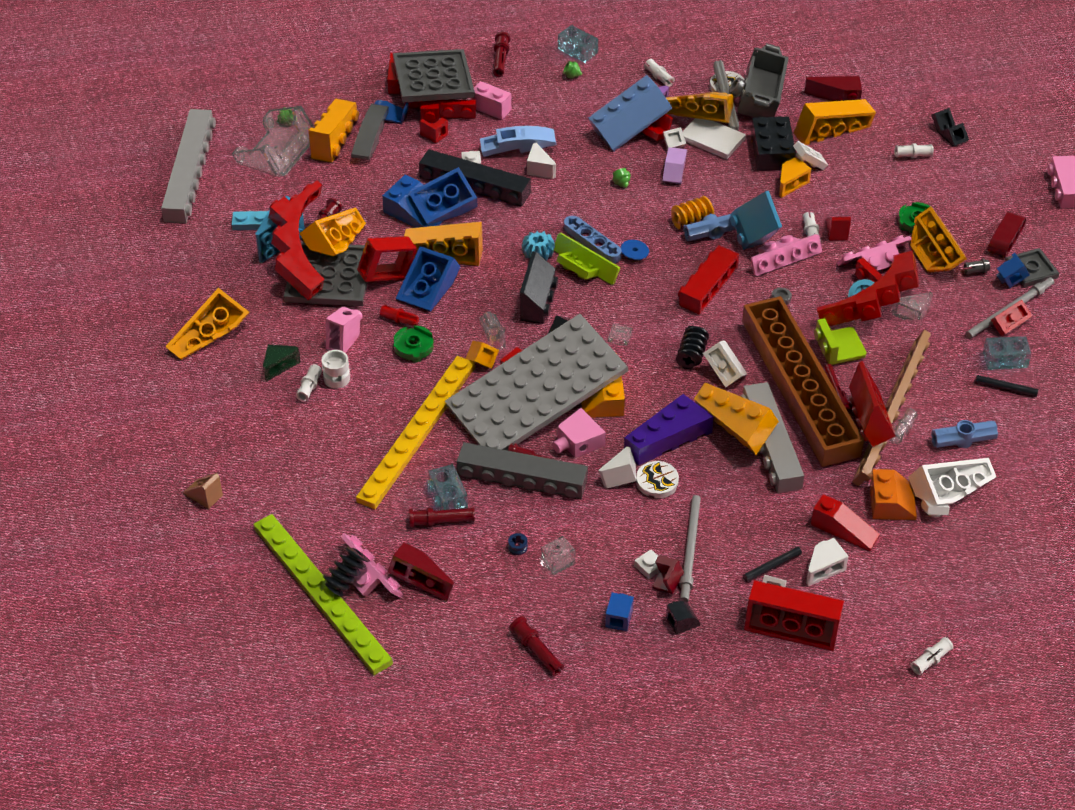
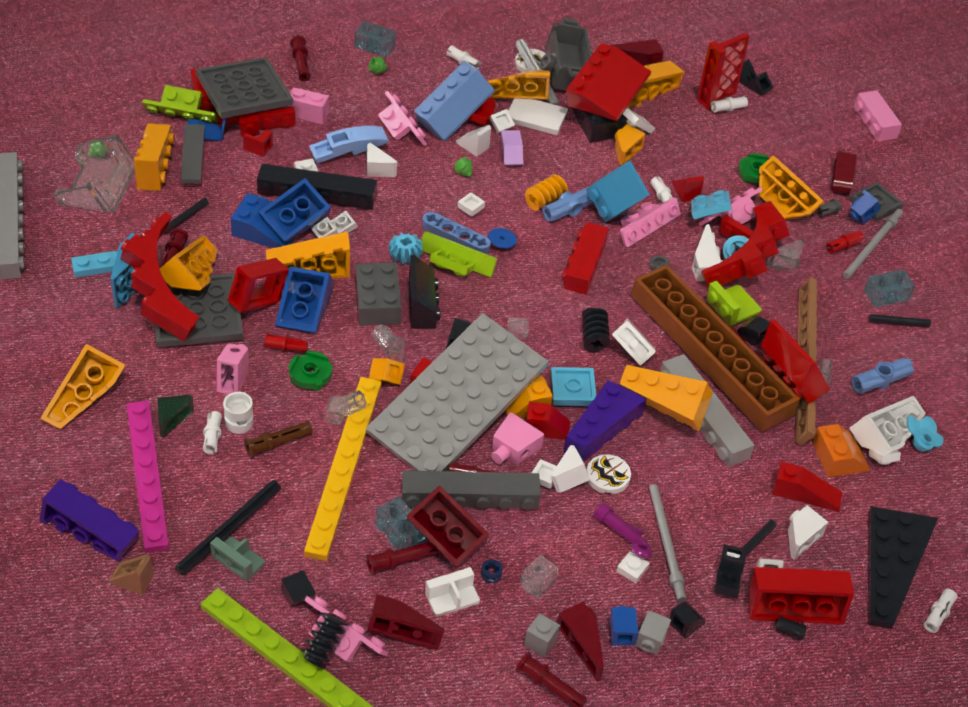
camera: 20 degrees left, 0 degrees up
(178, 438) = (88, 520): none -> dark purple wedge
(242, 411) = (147, 477): none -> dark pink plate
(297, 465) = (228, 527): none -> black axle
(297, 491) = (237, 557): none -> sand green panel
(338, 524) = (297, 587): none -> black brick
(345, 188) = (187, 214): none -> black bar
(355, 398) = (269, 440): none -> reddish brown pin
(372, 82) = (180, 102): none -> lime bracket
(430, 379) = (343, 406): none -> clear piece
(475, 554) = (451, 592): none -> white panel
(486, 497) = (448, 526): none -> dark red slope
(487, 215) = (339, 224): none -> white slope
(497, 283) = (378, 294): none -> dark grey brick
(541, 605) = (542, 635): none -> light grey brick
(573, 125) = (397, 122): none -> bright pink bracket
(579, 608) = (582, 632): none -> dark red slope
(594, 465) = (545, 470): none -> white plate
(614, 420) = (548, 420): none -> red slope
(616, 214) = (471, 204): none -> white plate
(642, 155) = (476, 140): none -> white slope
(645, 622) = (653, 632): none -> light grey brick
(651, 394) = (572, 386): none -> medium azure plate
(658, 534) = (640, 547): none -> magenta plant
(669, 574) = (657, 576): dark red panel -> none
(739, 583) = (730, 571): none -> black slope
(780, 644) = (791, 627): none -> black pin
(784, 113) = (607, 83): none -> red slope
(830, 290) = (706, 254): none -> white slope
(846, 371) = (754, 330): none -> black brick
(851, 246) = (712, 204): none -> medium azure plate
(897, 116) = (715, 67): none -> red fence
(907, 600) = (894, 555): none -> black wing
(980, 301) = (845, 241): none -> red axle
(985, 494) = (924, 433): none -> medium azure plate
(1011, 317) = (879, 253): plate -> none

